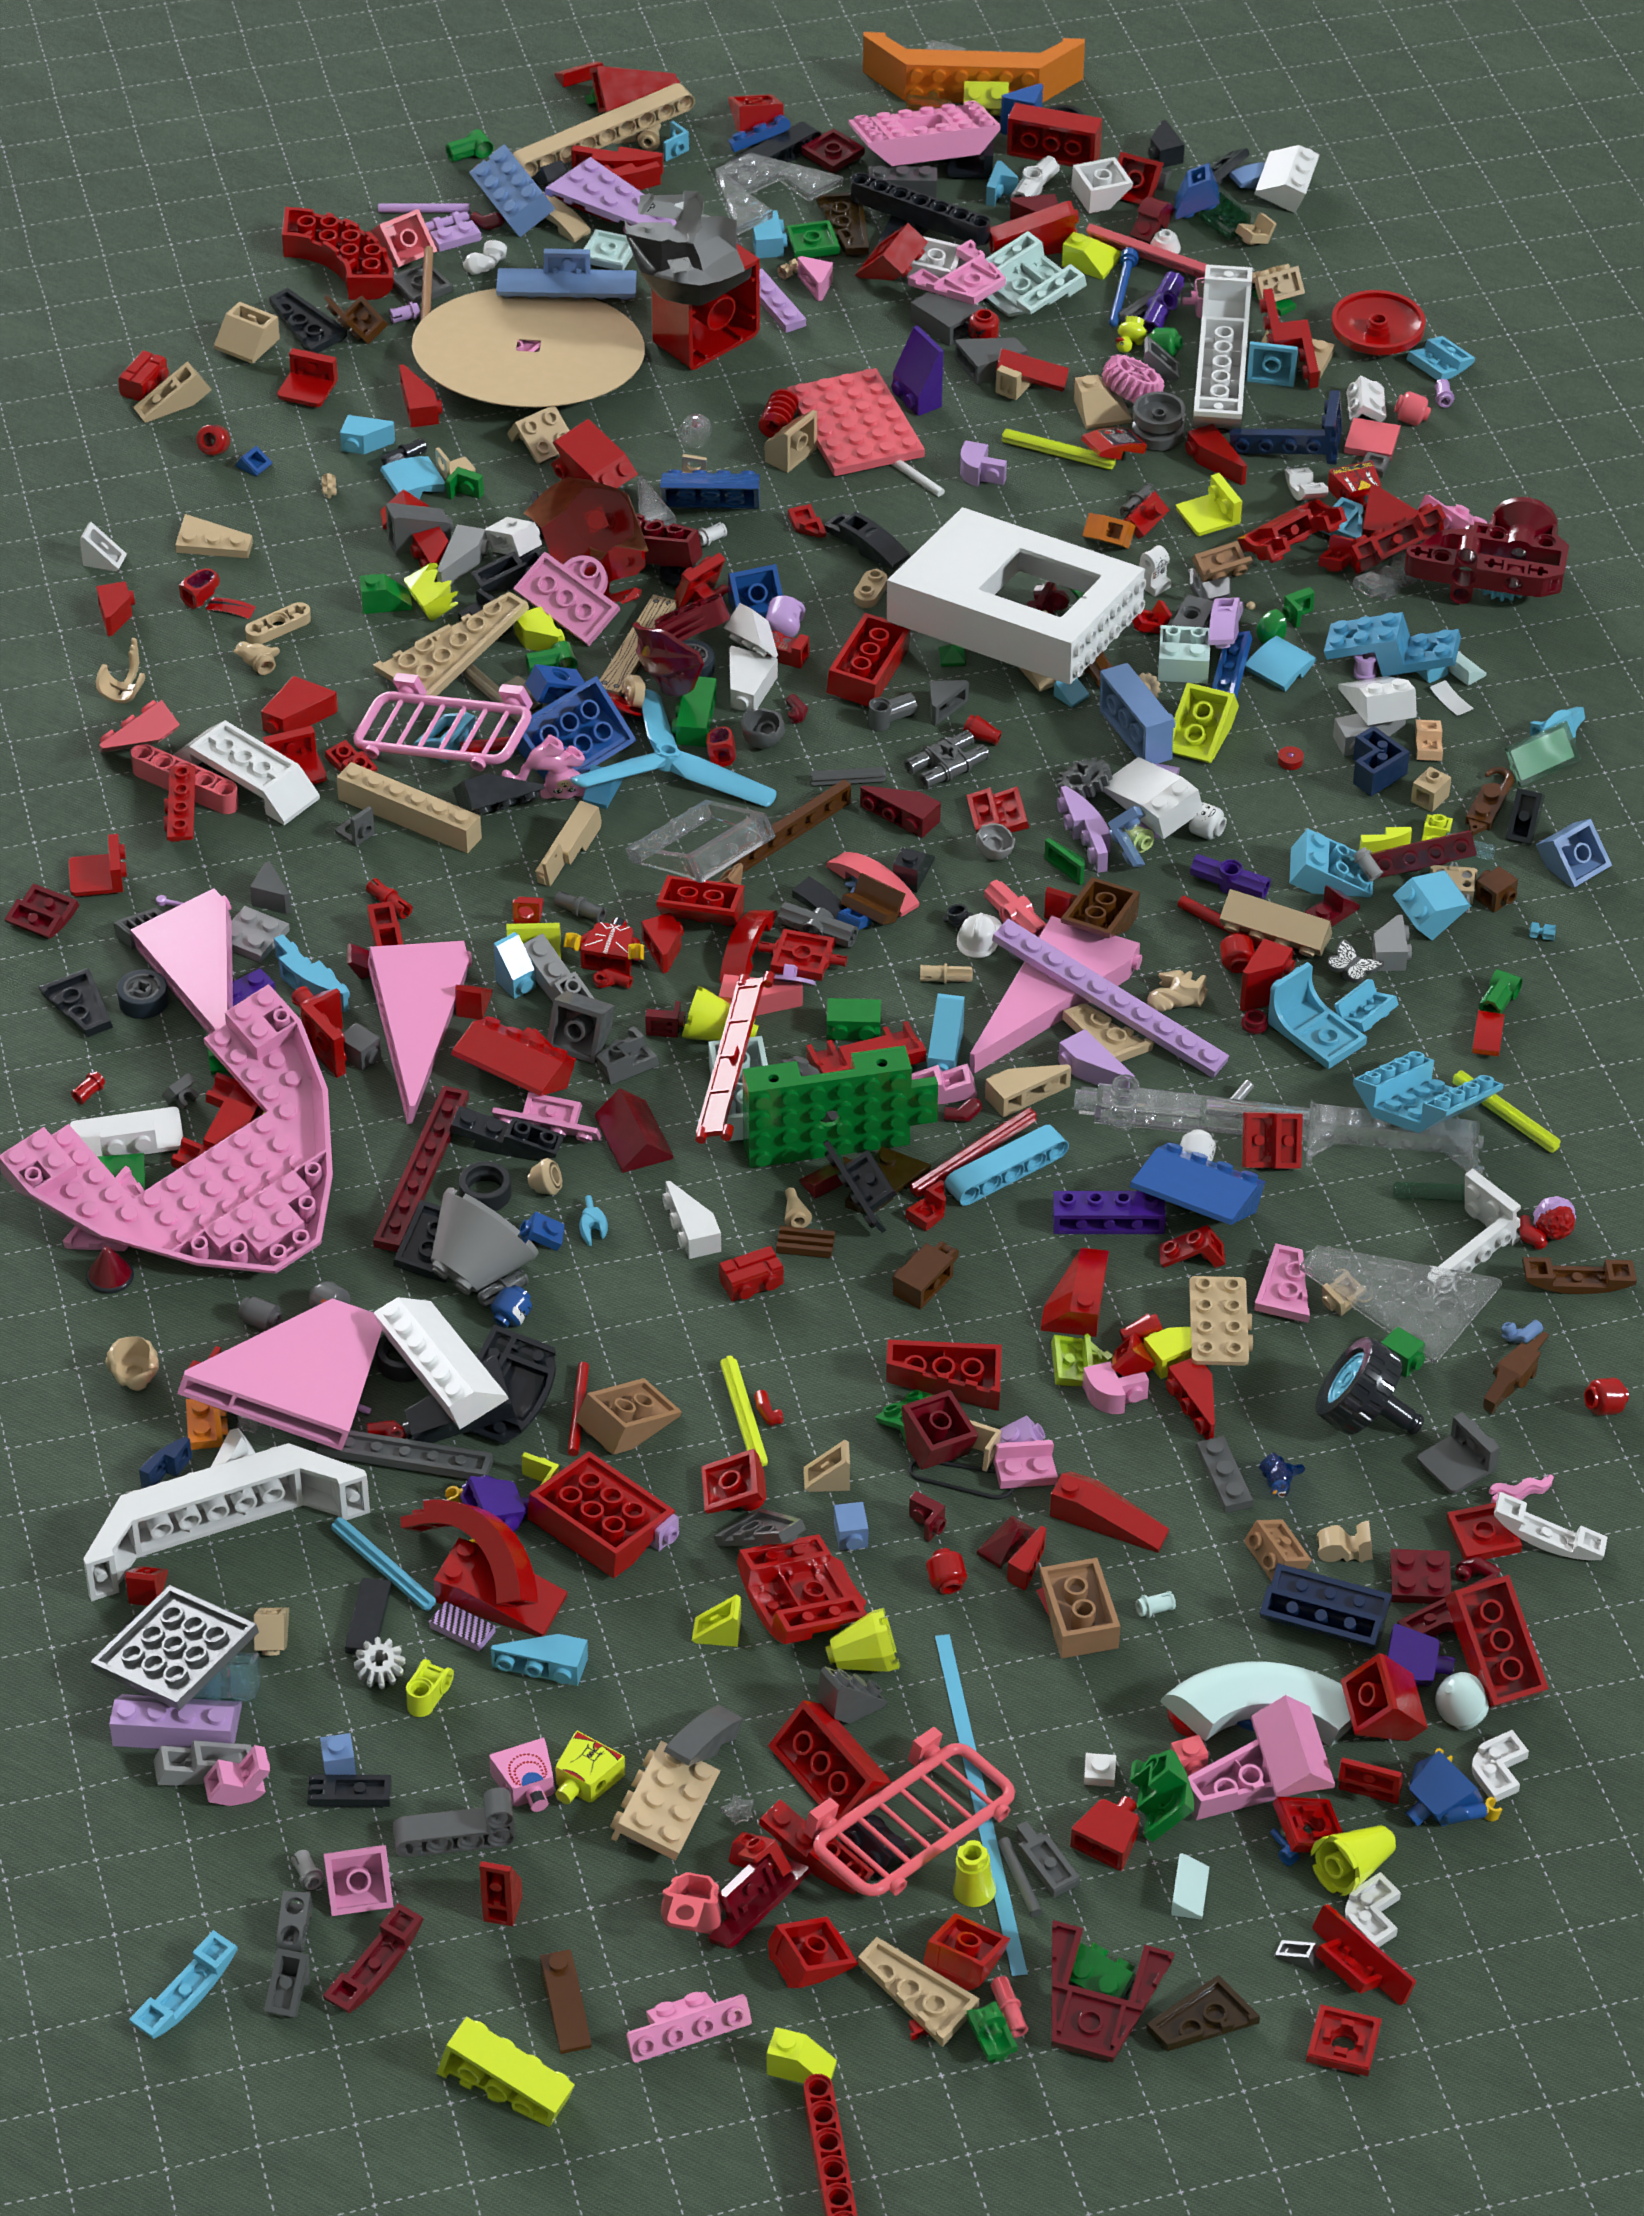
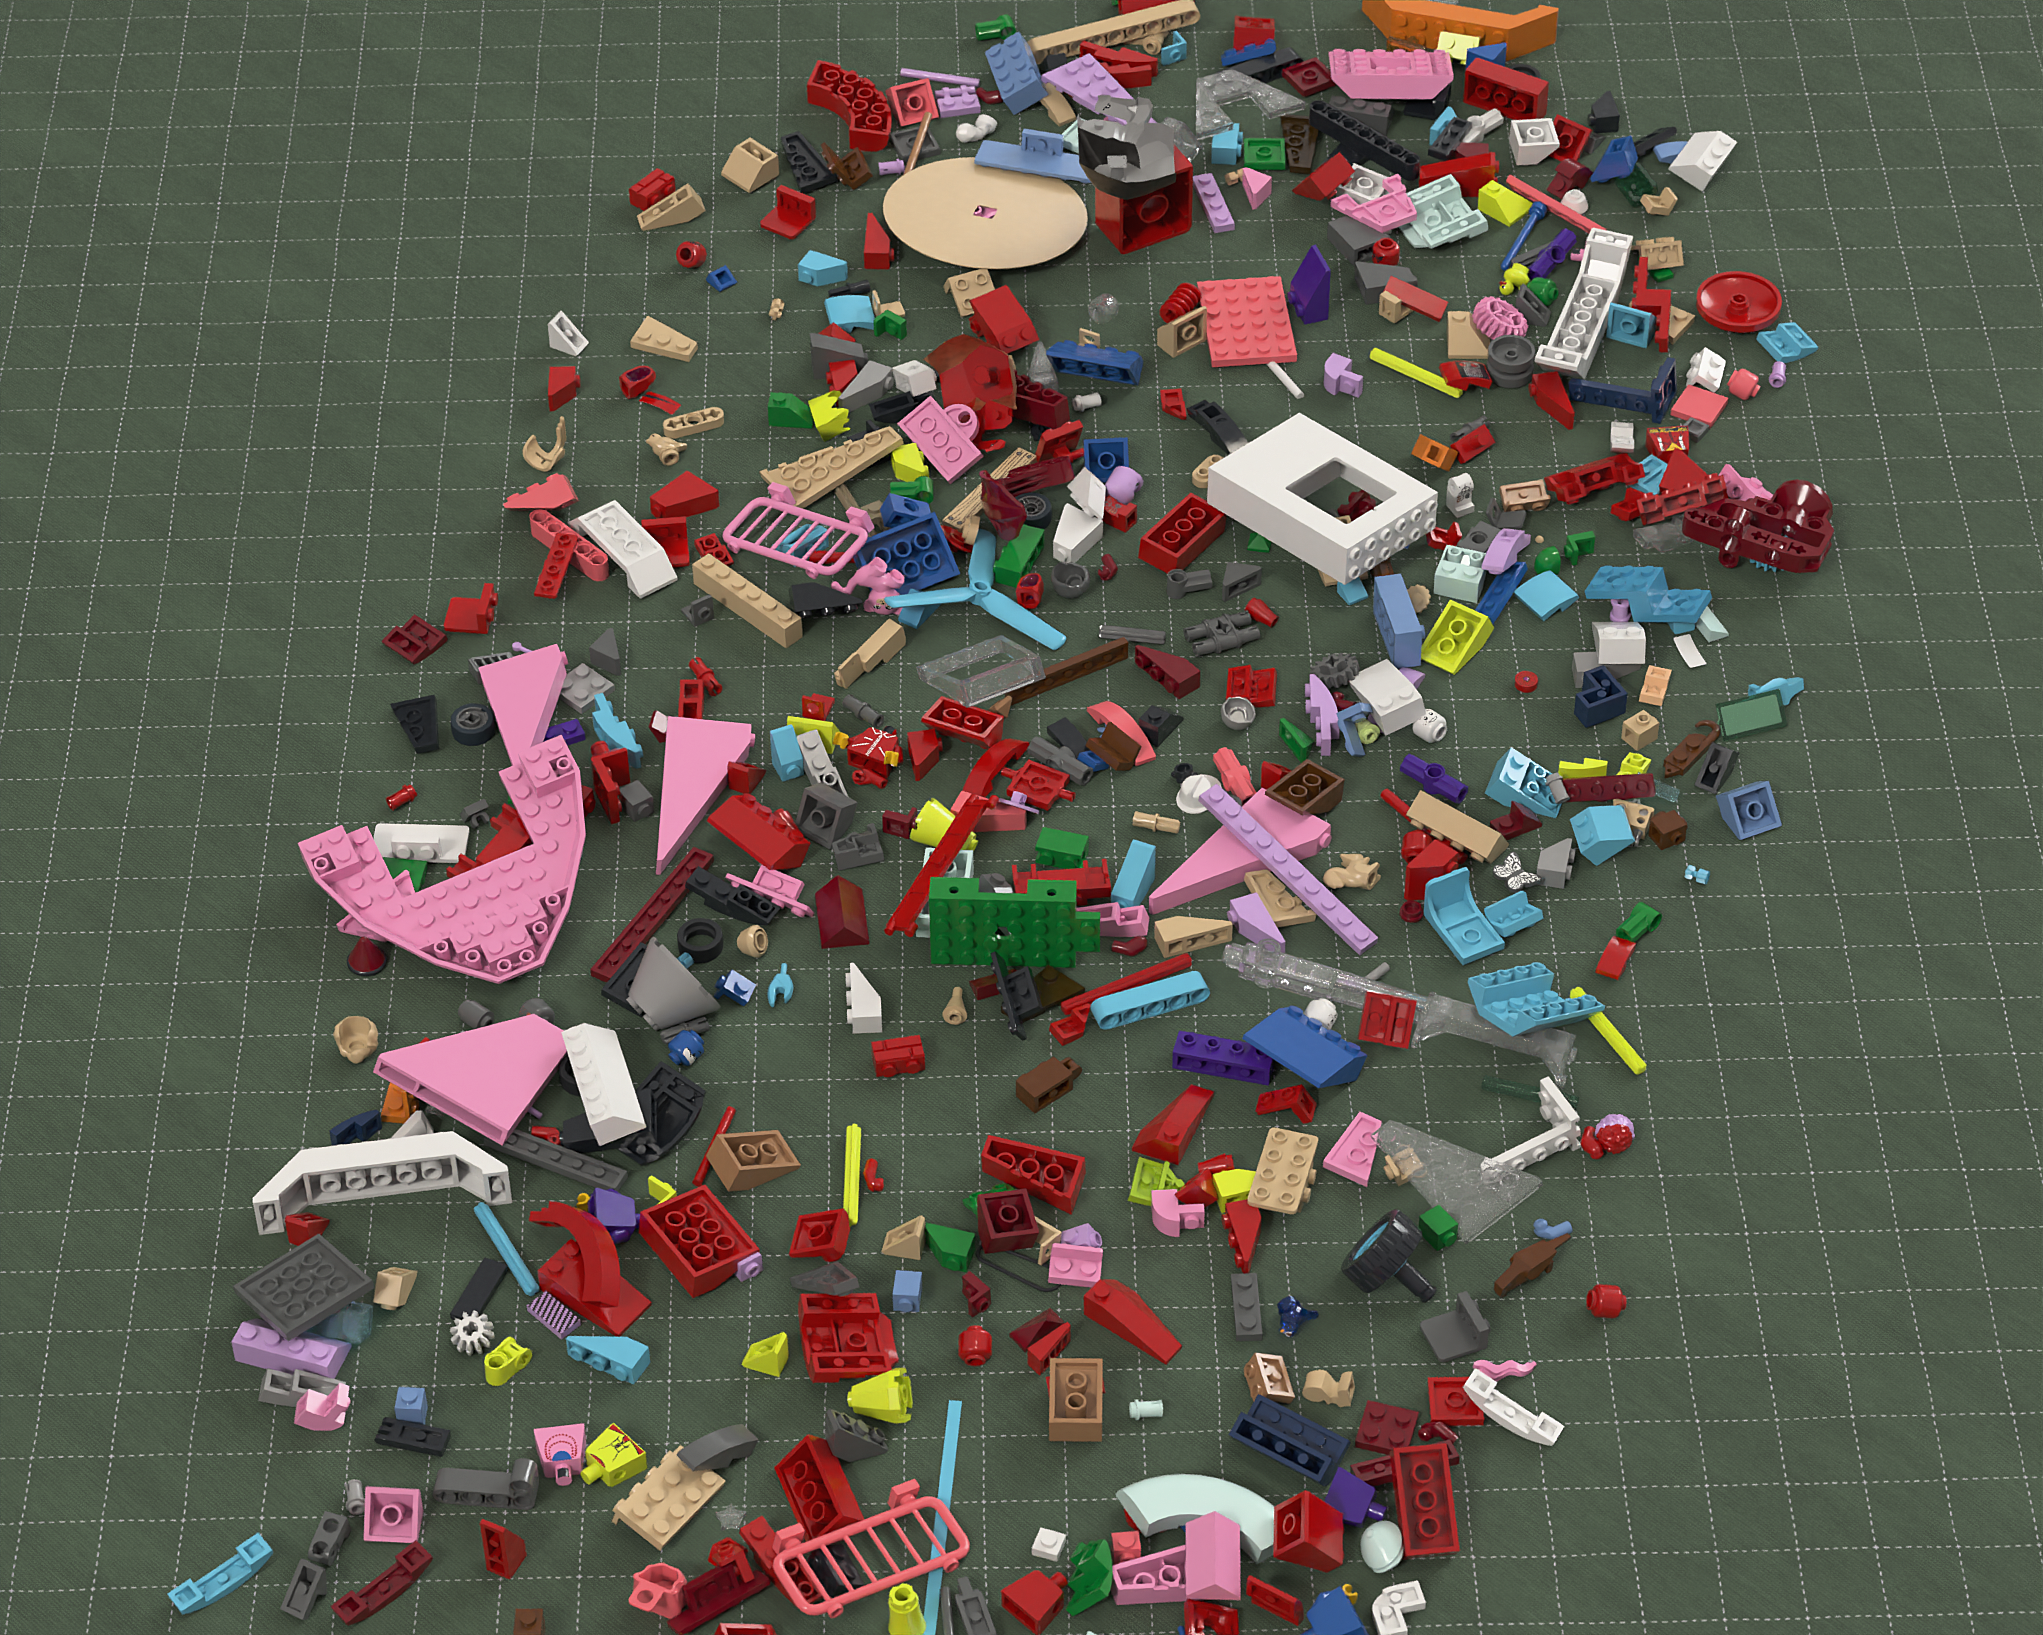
camera: 15 degrees right, 0 degrees up
(803, 1240) = (957, 1034): reddish brown tile -> none
(880, 1468) = (950, 1246): none -> green slope
(1012, 194) = (1450, 139): none -> black tile
(1107, 814) = (1340, 703): none -> dark red arm
(1213, 511) = (1532, 449): neon yellow bracket -> none
(1579, 1279) = (1619, 1192): reddish brown slope -> none

